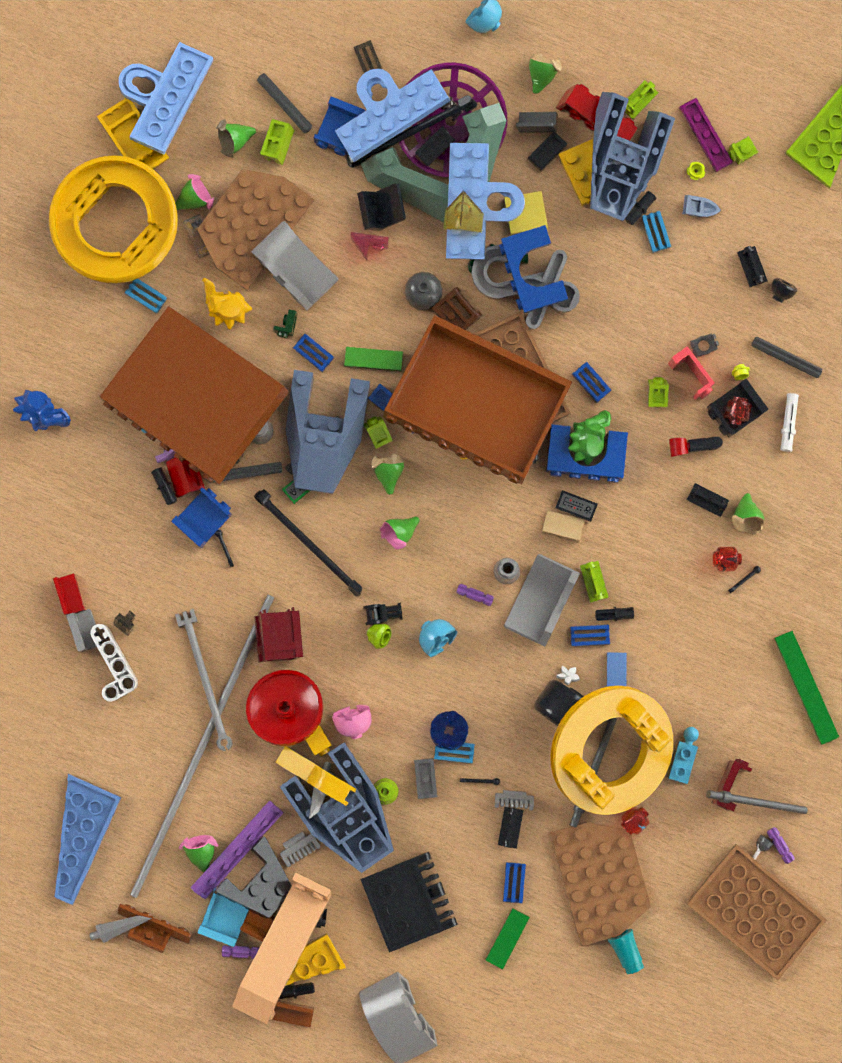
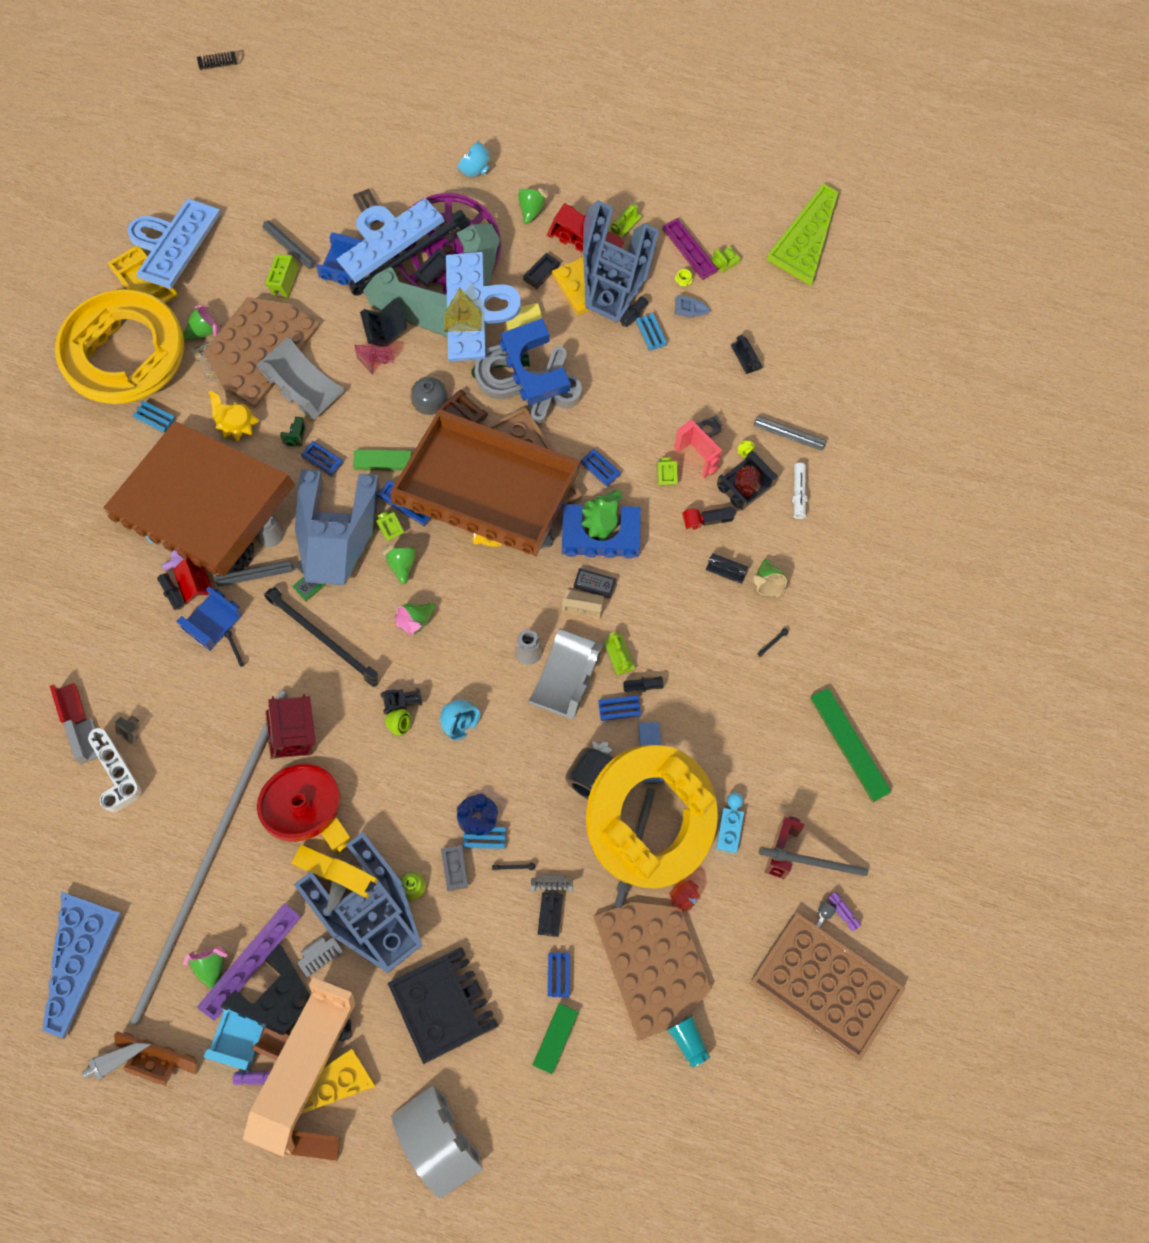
camera: 10 degrees left, 15 degrees down
(40, 411) = (41, 527): blue head -> none
(187, 622) = (195, 725): light grey hinge -> none
(233, 137) = (239, 273): hat -> none
(296, 990) = (317, 1118): black axle -> none
(352, 721) = (373, 812): bright pink cylinder -> none
(475, 594) = (496, 675): medium lavender axle -> none
(537, 122) = (529, 245): dark grey panel -> none
(726, 558) = (752, 621): clear red head -> none
(782, 290) = (778, 373): black brick -> none

